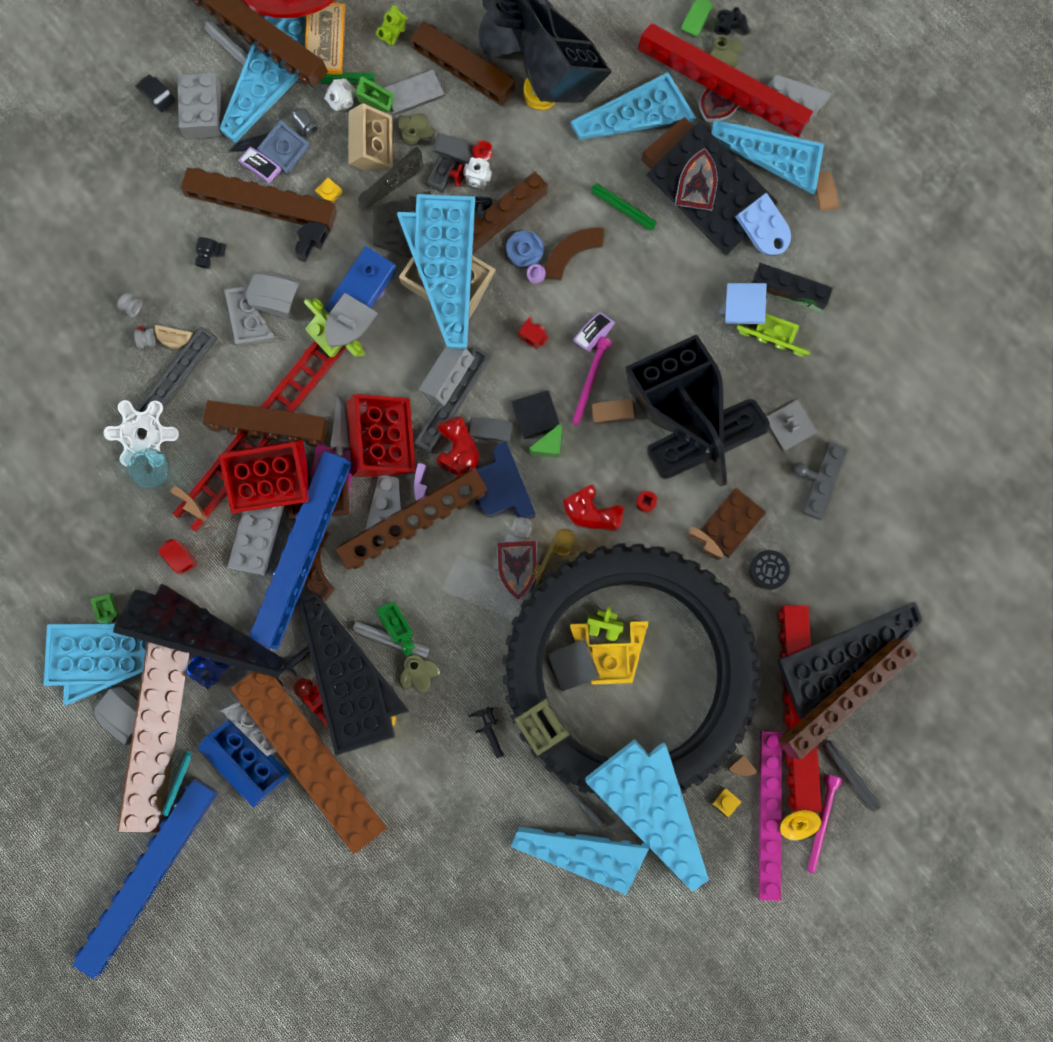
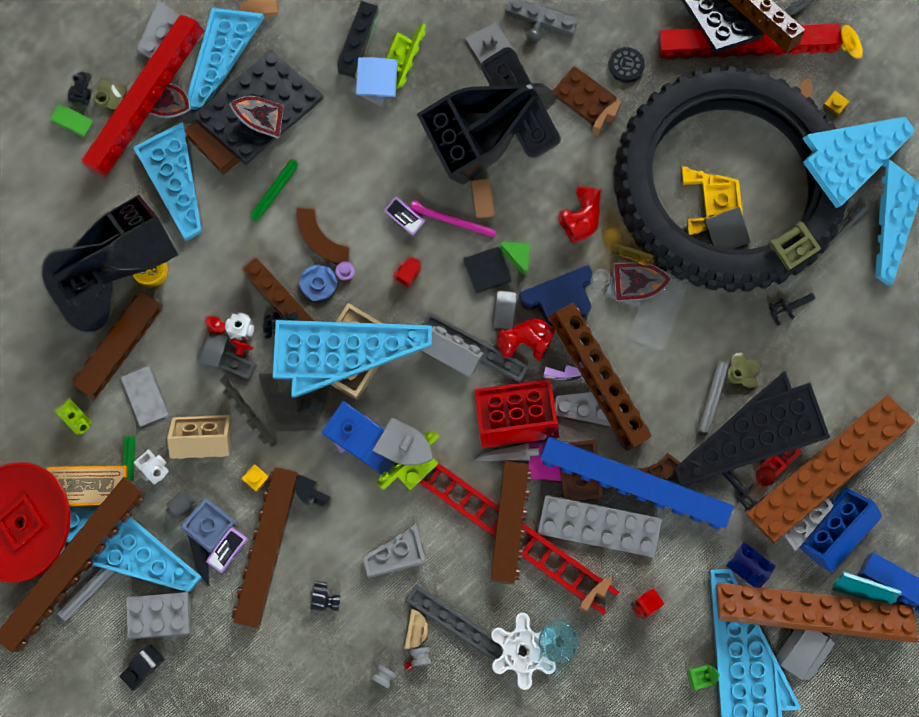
camera: 90 degrees left, 5 degrees down
(186, 627) = (720, 592): black wing -> none
(265, 476) = (566, 516): red slope -> none
(272, 293) = (370, 525): light grey slope -> none
(373, 95) = (153, 432): bright green slope -> none
(396, 626) = (702, 390): green plate -> none
(415, 128) = (184, 392): olive plate -> none
(613, 626) = (683, 204): lime hips -> none
(644, 504) = (567, 172): red wheel -> none
(764, 225) = (296, 61): light blue plate -> none
(770, 816) = (843, 68): dark pink plate -> none
(832, 784) = (812, 17): dark pink piece -> none

